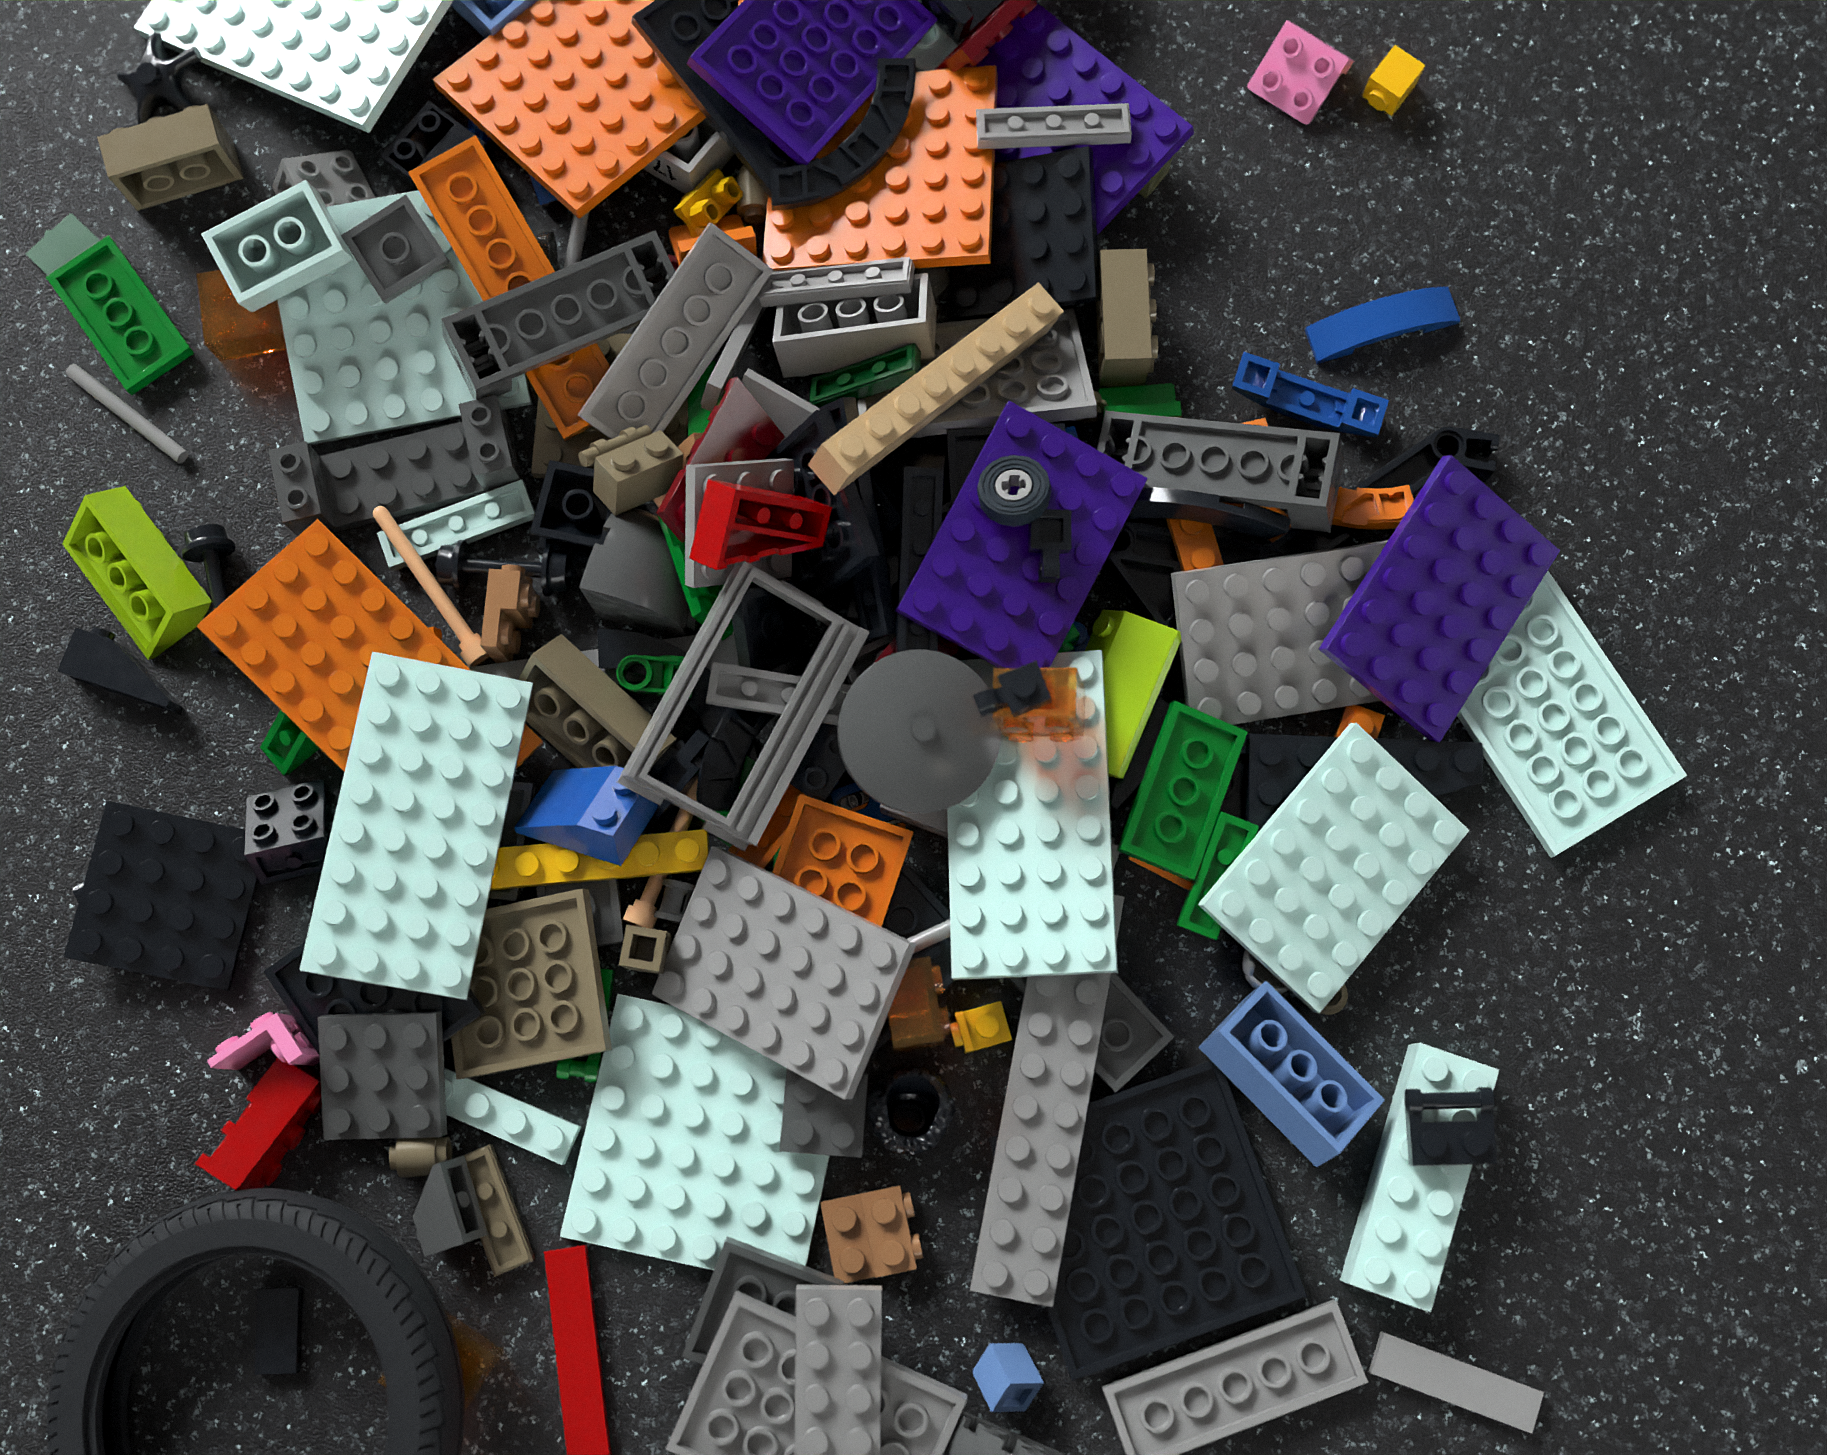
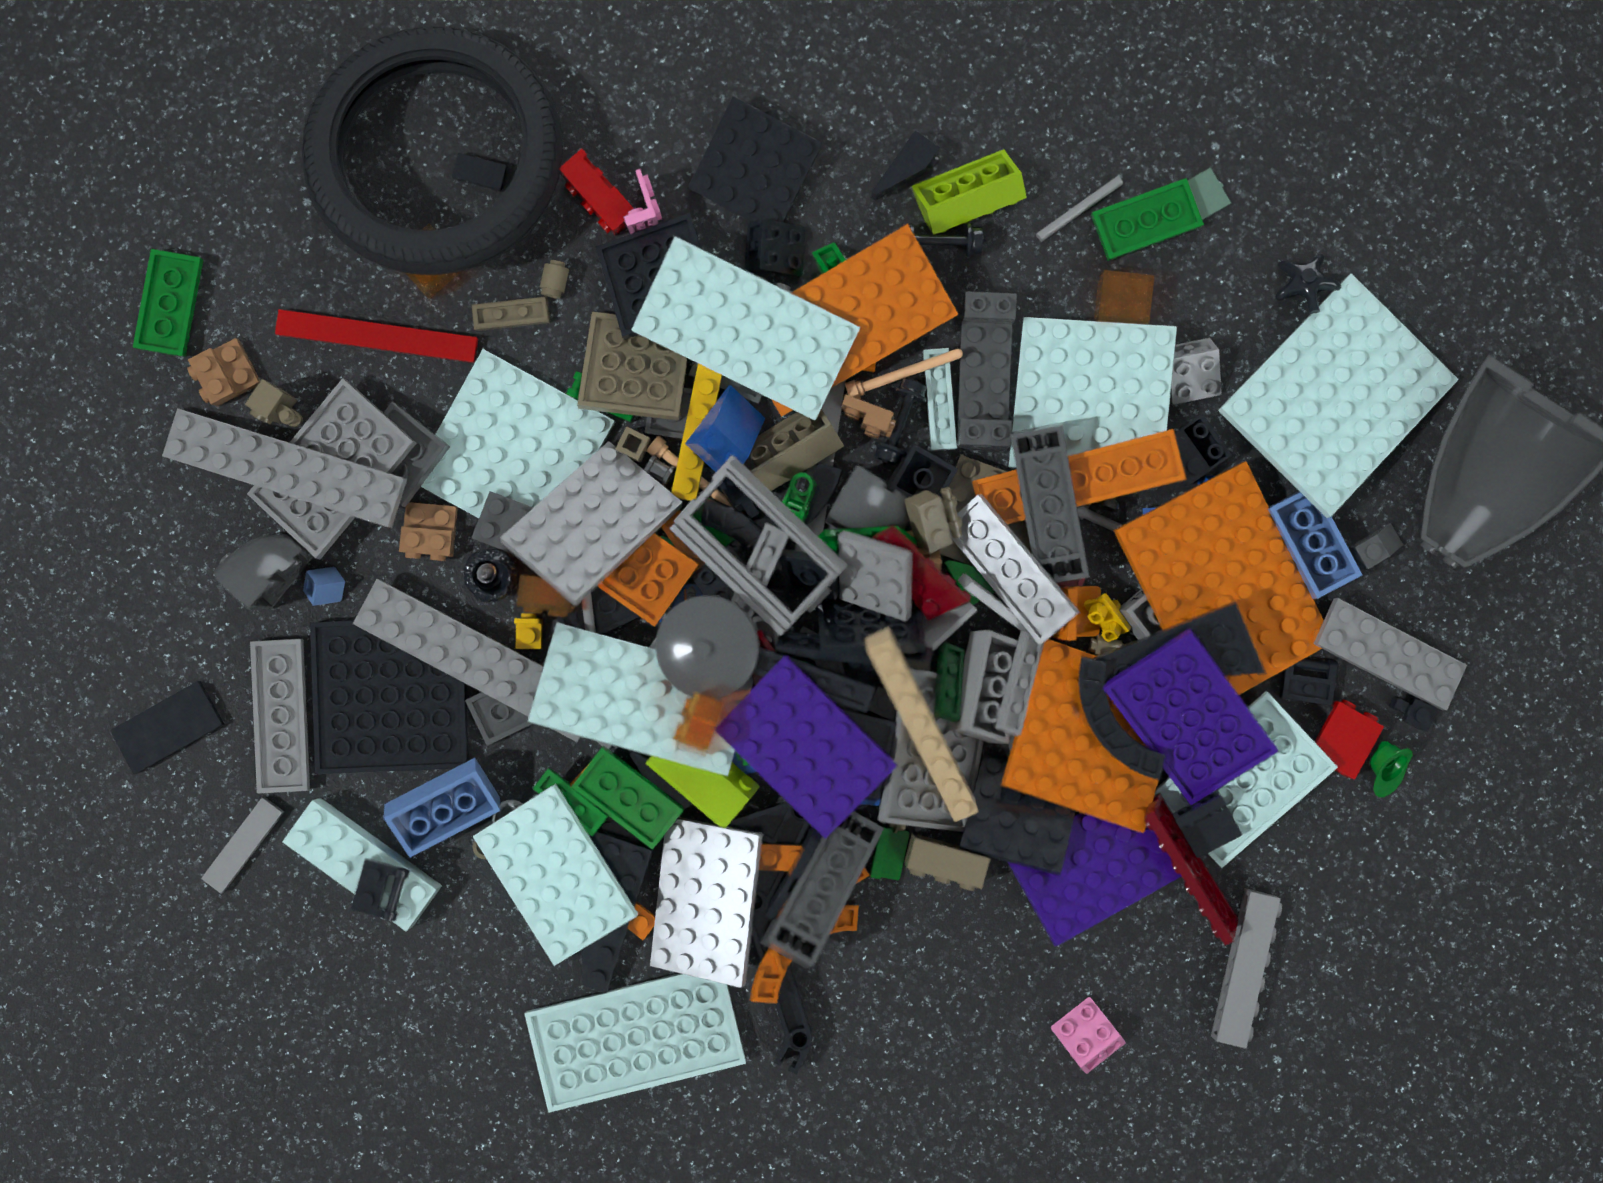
camera: 105 degrees right, 10 degrees up
(170, 157) = (1244, 277): dark tan brick -> none
(277, 246) = (1146, 333): light aqua brick -> none
(382, 1075) = (605, 268): dark grey plate -> none
(395, 249) = (1126, 407): dark grey plate -> none
(448, 1208) = (515, 288): dark grey slope -> none
(509, 1118) = (565, 331): light aqua plate -> none
(753, 523) = (864, 584): red wedge -> none
(996, 484) = (822, 757): black bush -> none
(1020, 690) = (703, 714): black plate -> none
(1050, 537) = (801, 763): black plate -> none
(1053, 126) = (1083, 855): light grey tile -> none
(1308, 400) = (860, 963): blue slope -> none
(1381, 320) = (898, 1029): blue slope -> none
(1393, 80) = (1061, 1093): yellow brick -> none
(1440, 599) = (699, 997): dark purple plate -> none

